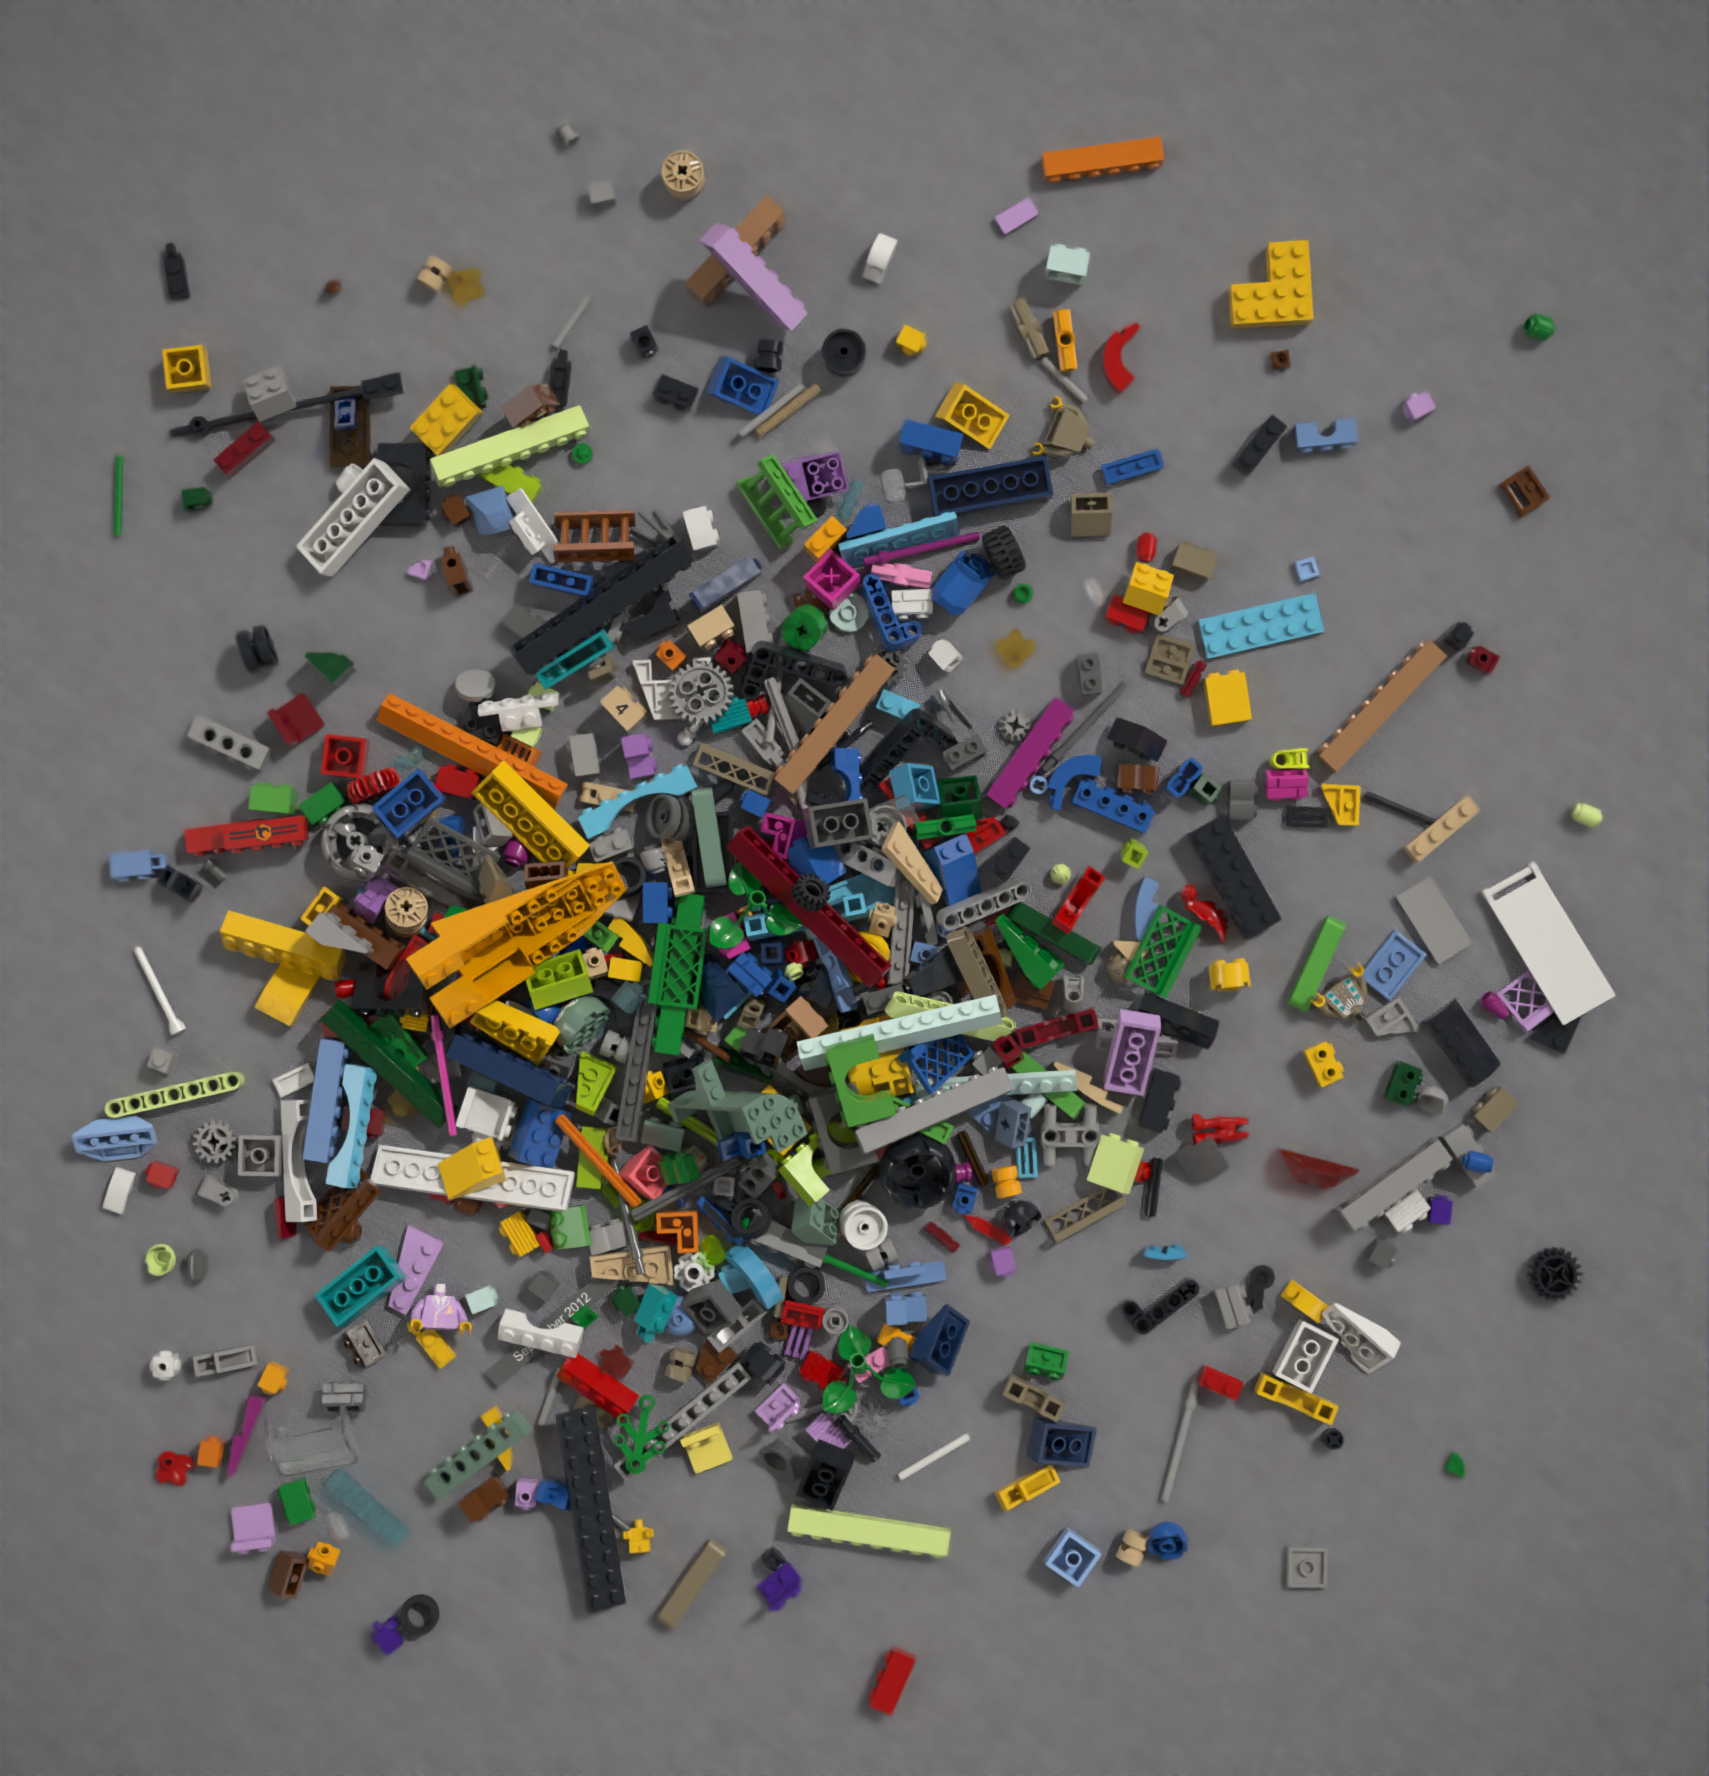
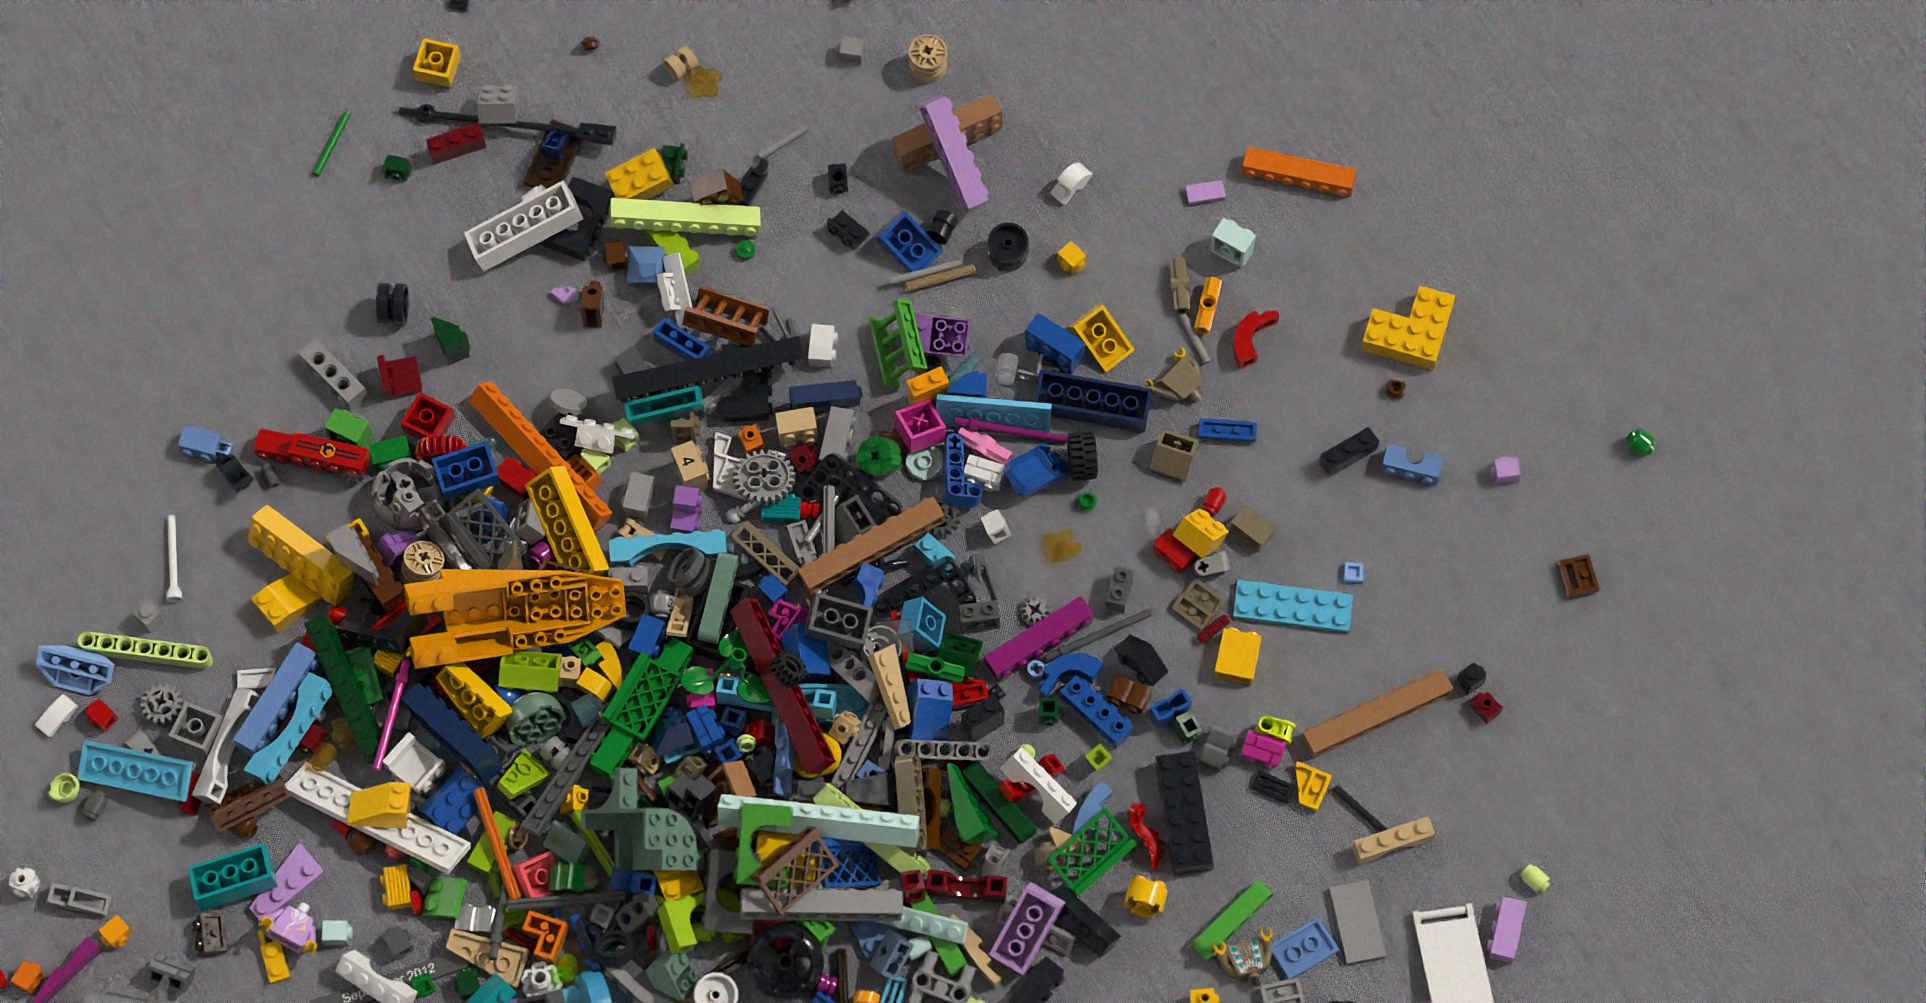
camera: 20 degrees right, 20 degrees down
(221, 1220) = (135, 770): none -> medium azure plate
(394, 1135) = (323, 757): none -> clear yellow brick
(888, 1087) = (783, 858): none -> reddish brown fence
(1068, 825) = (1048, 710): none -> dark green brick
(1068, 897) = (1024, 768): none -> white arch
(1576, 875) = (1506, 929): none -> lavender brick

